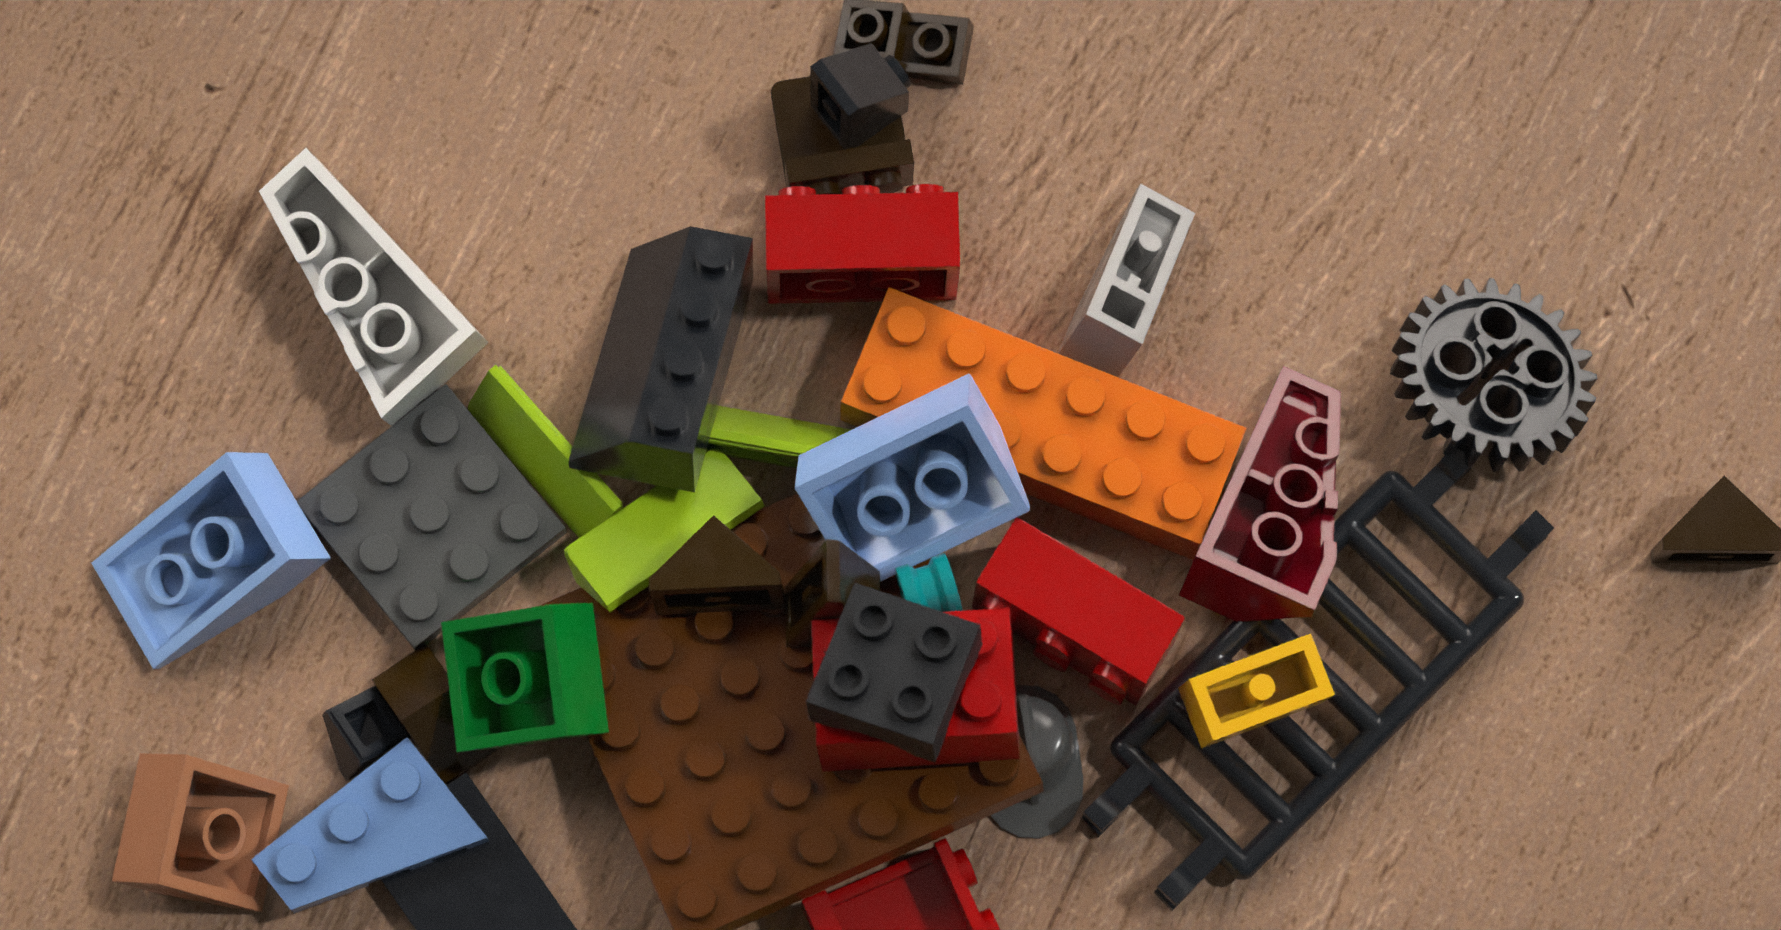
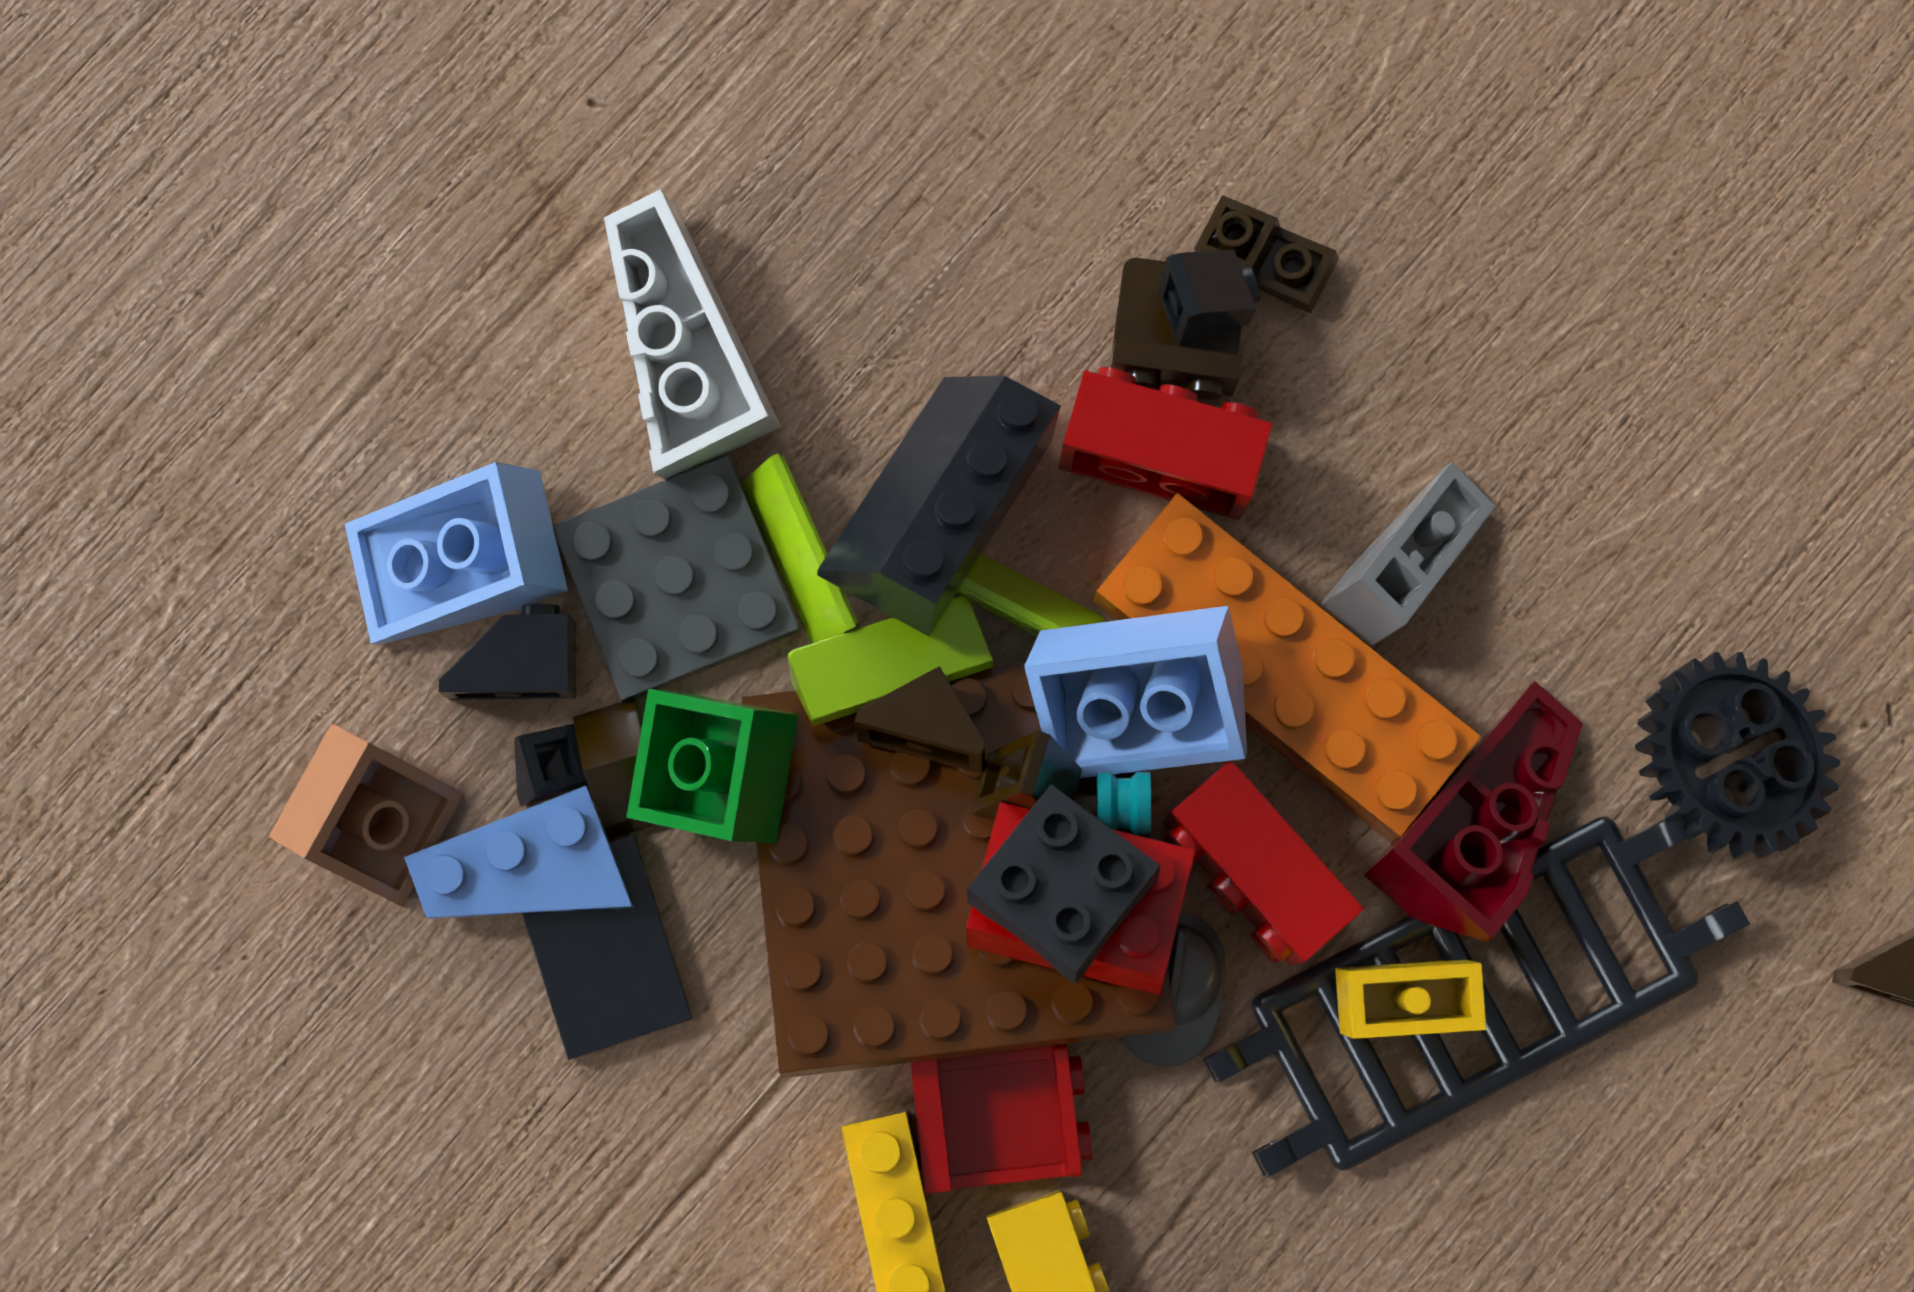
camera: 20 degrees right, 5 degrees up
(302, 639) = (518, 659): none -> black slope

